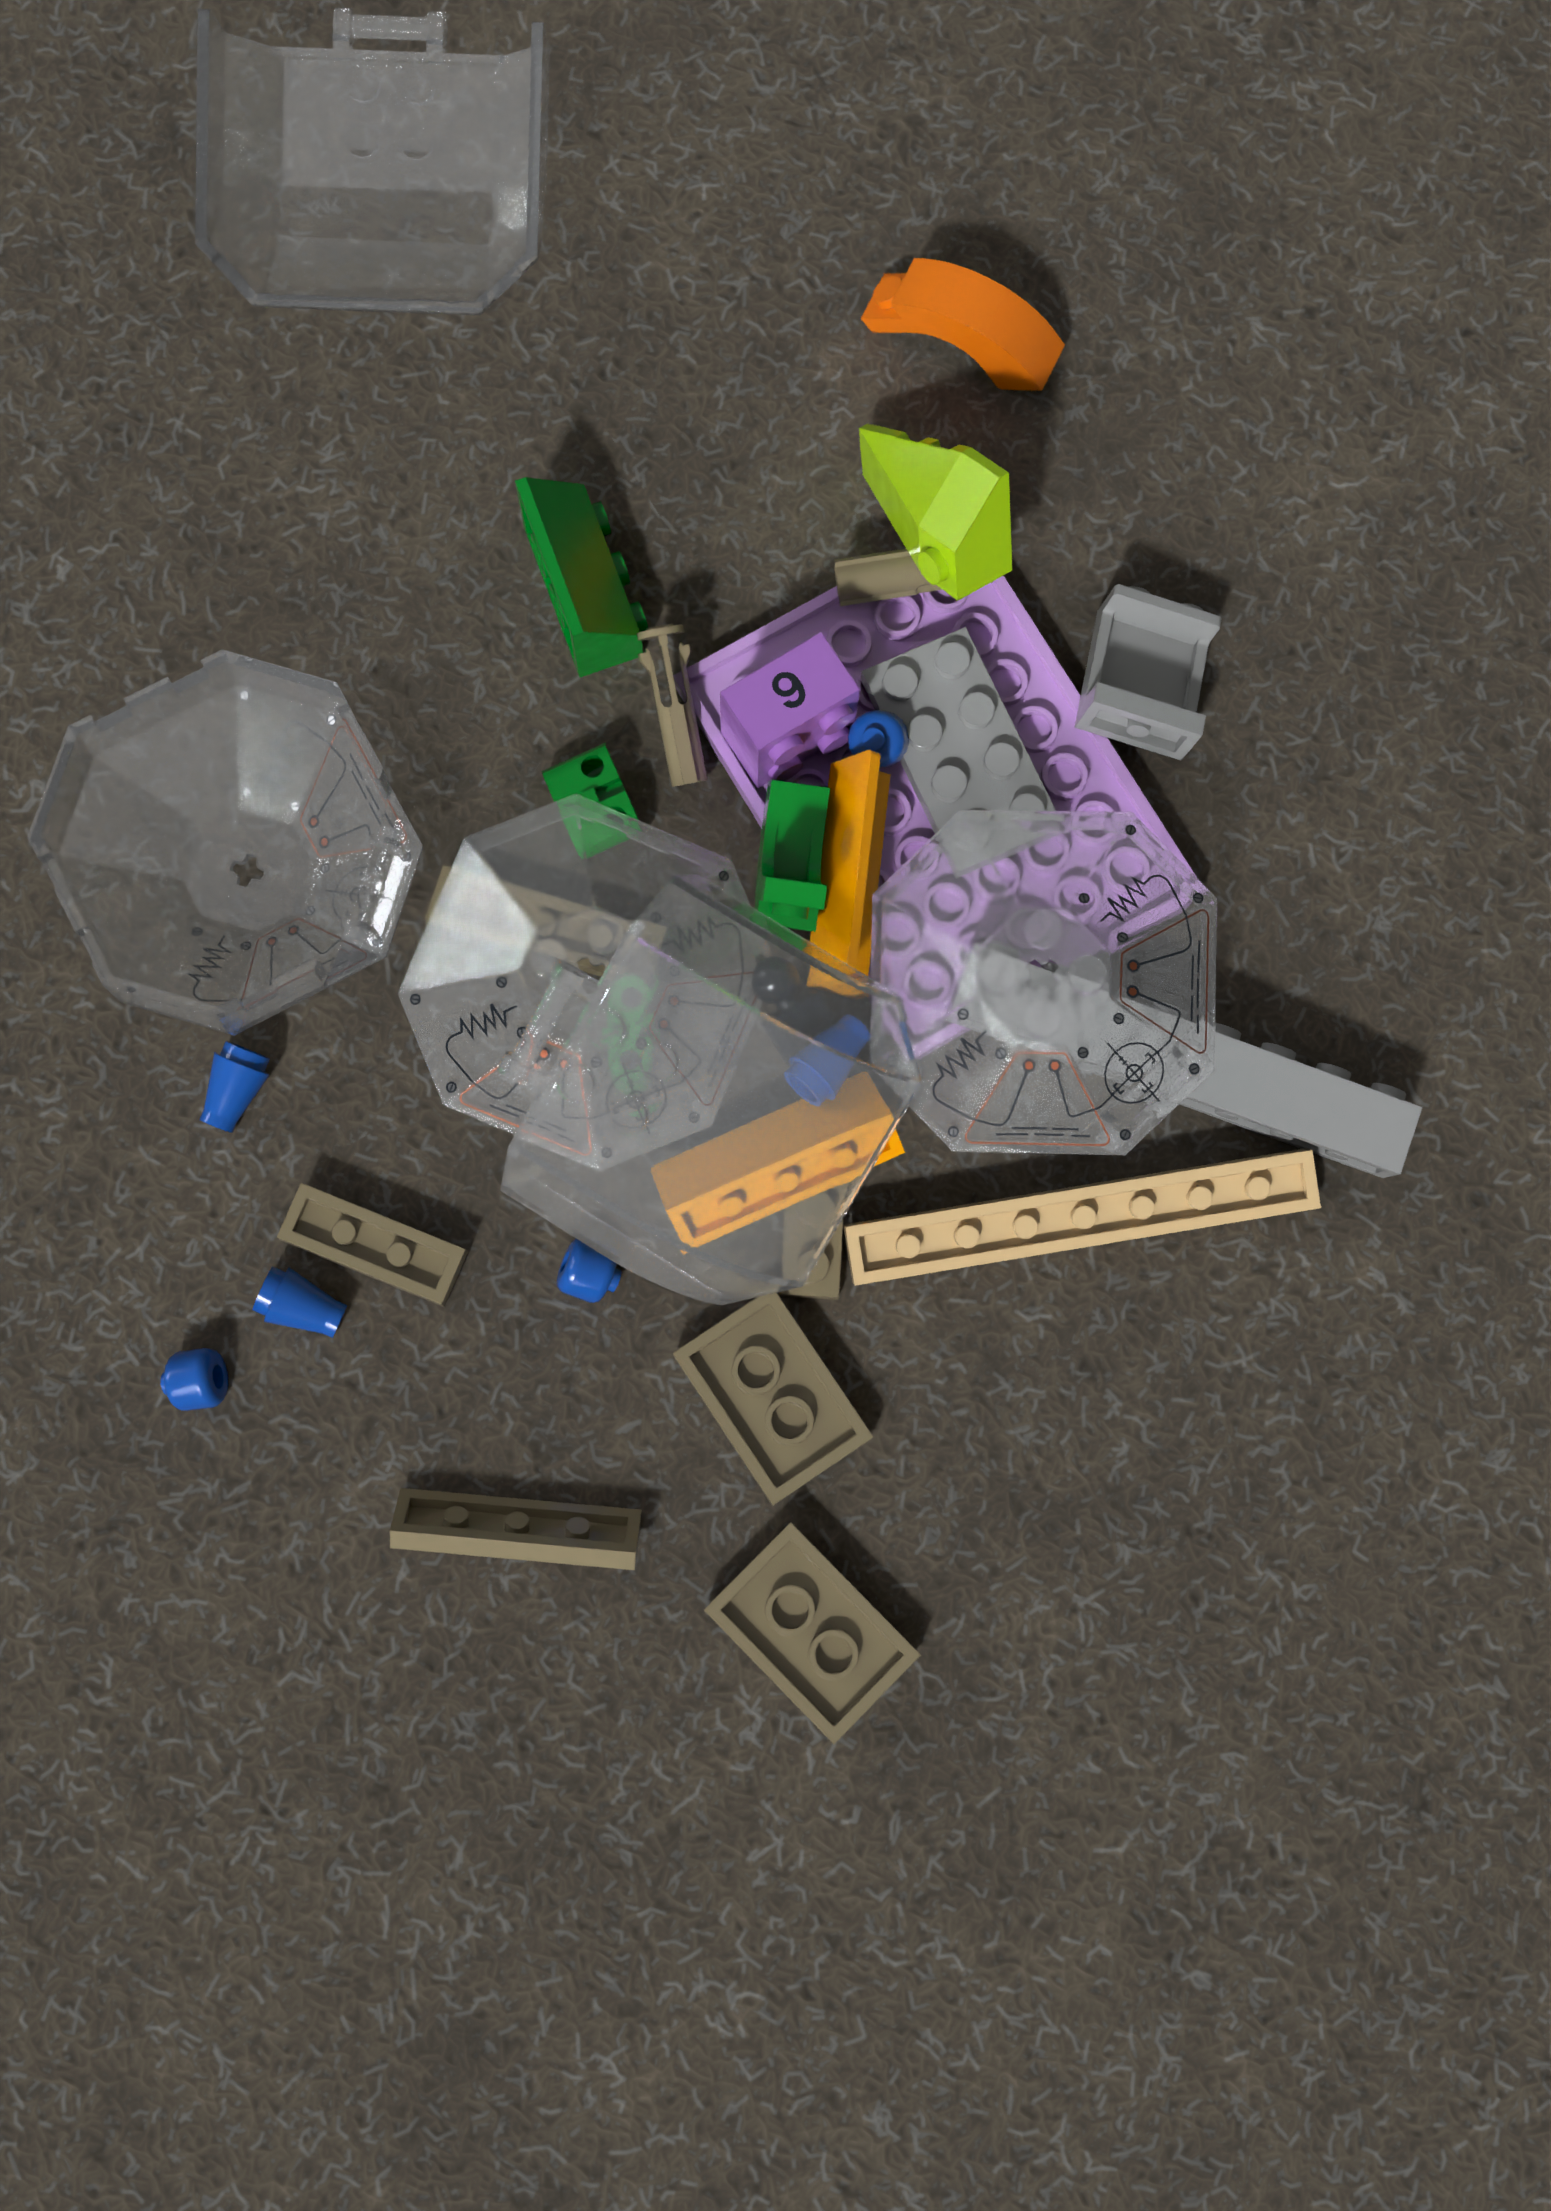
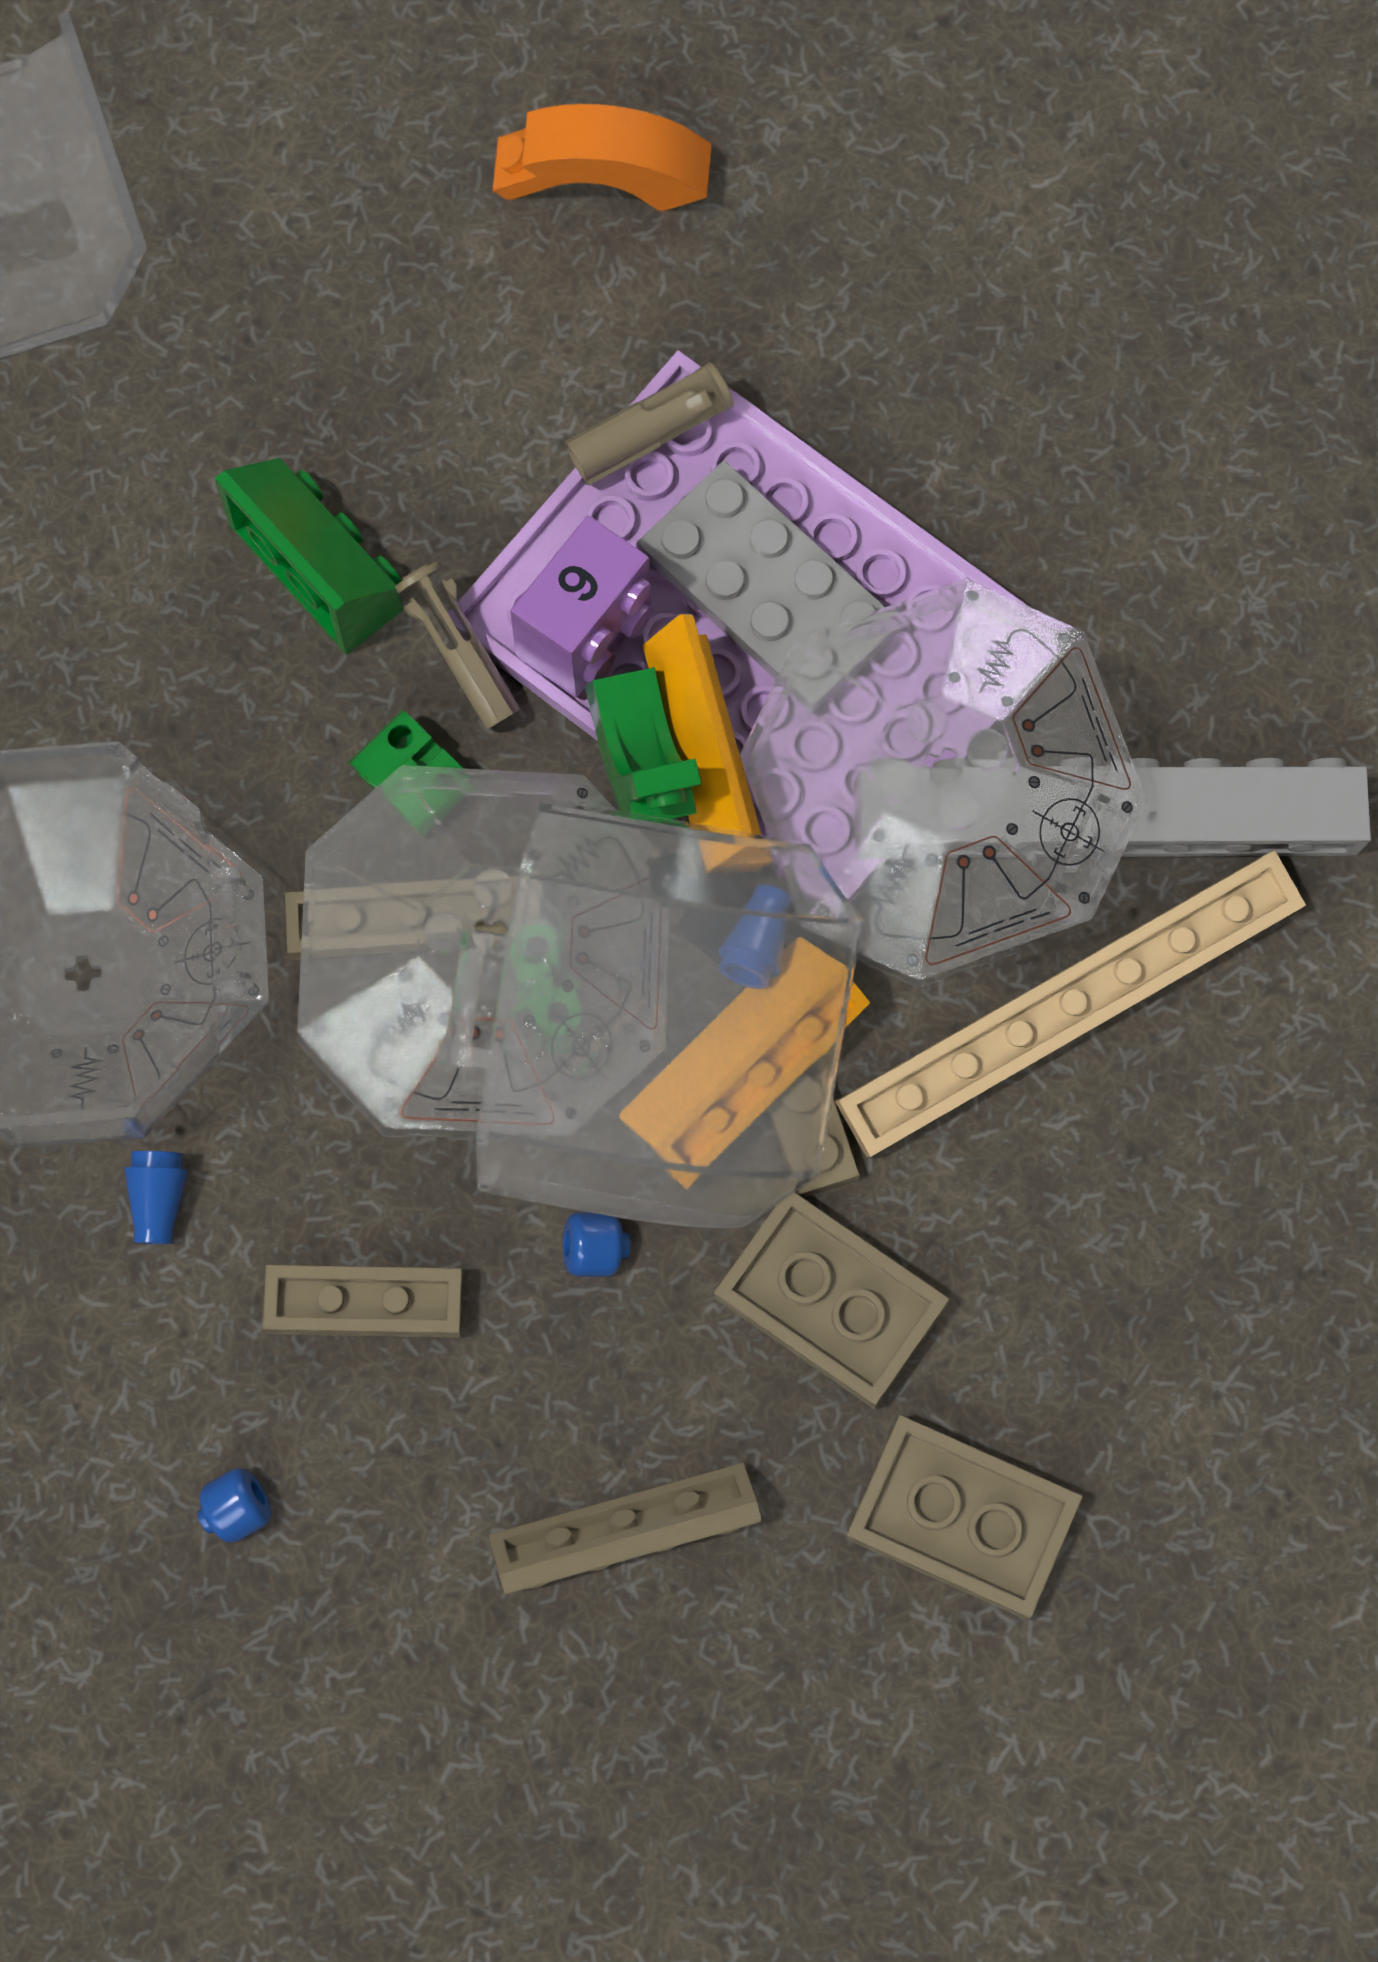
camera: 15 degrees left, 5 degrees down
(298, 1303) = (309, 1389): blue cone -> none
(881, 733) = (678, 595): blue piece -> none
(943, 505) = (655, 347): lime wedge -> none
(1146, 671) = (922, 439): light grey panel -> none

